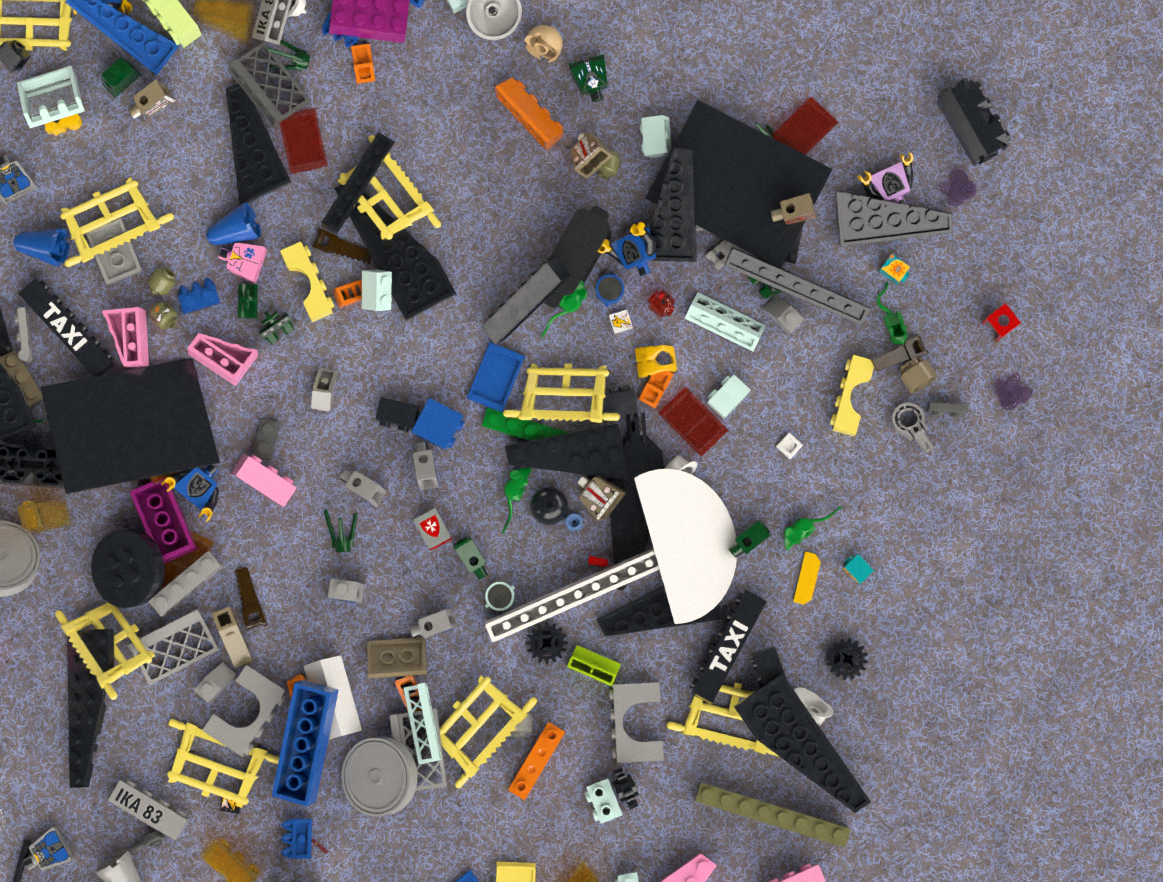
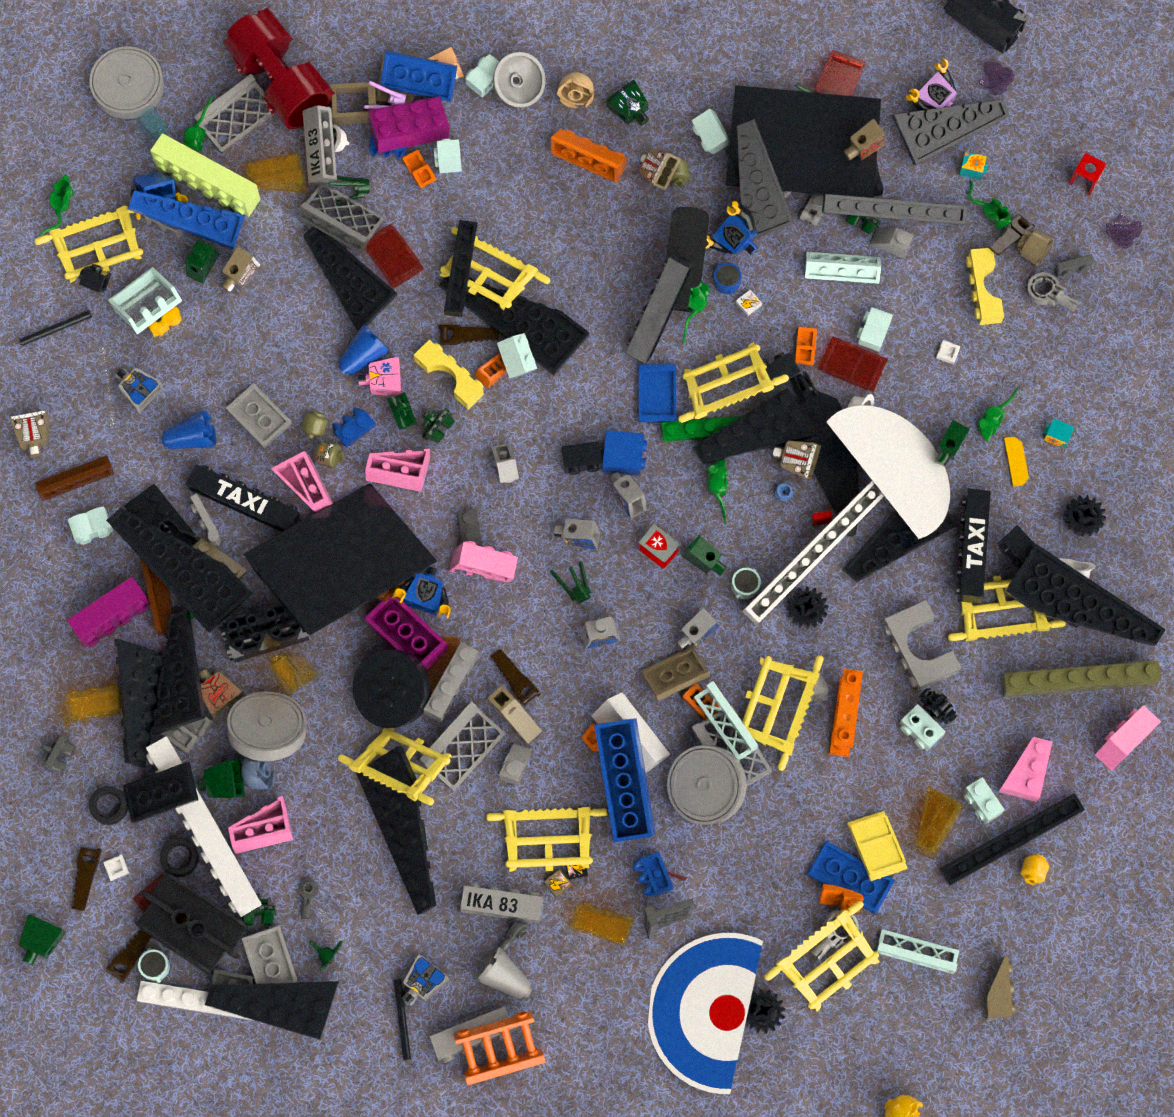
camera: 20 degrees left, 10 degrees down
(139, 204) = (219, 410): light yellow piece -> none
(208, 810) = (558, 883): none -> tile
(241, 739) = (557, 804): light grey arch -> none
(393, 63) = (448, 156): none -> light aqua brick
(549, 506) = (755, 486): black cylinder -> none
(594, 665) = (859, 611): lime piece -> none
(646, 360) = (788, 328): yellow piece -> none
(661, 303) = (779, 271): clear red head -> none

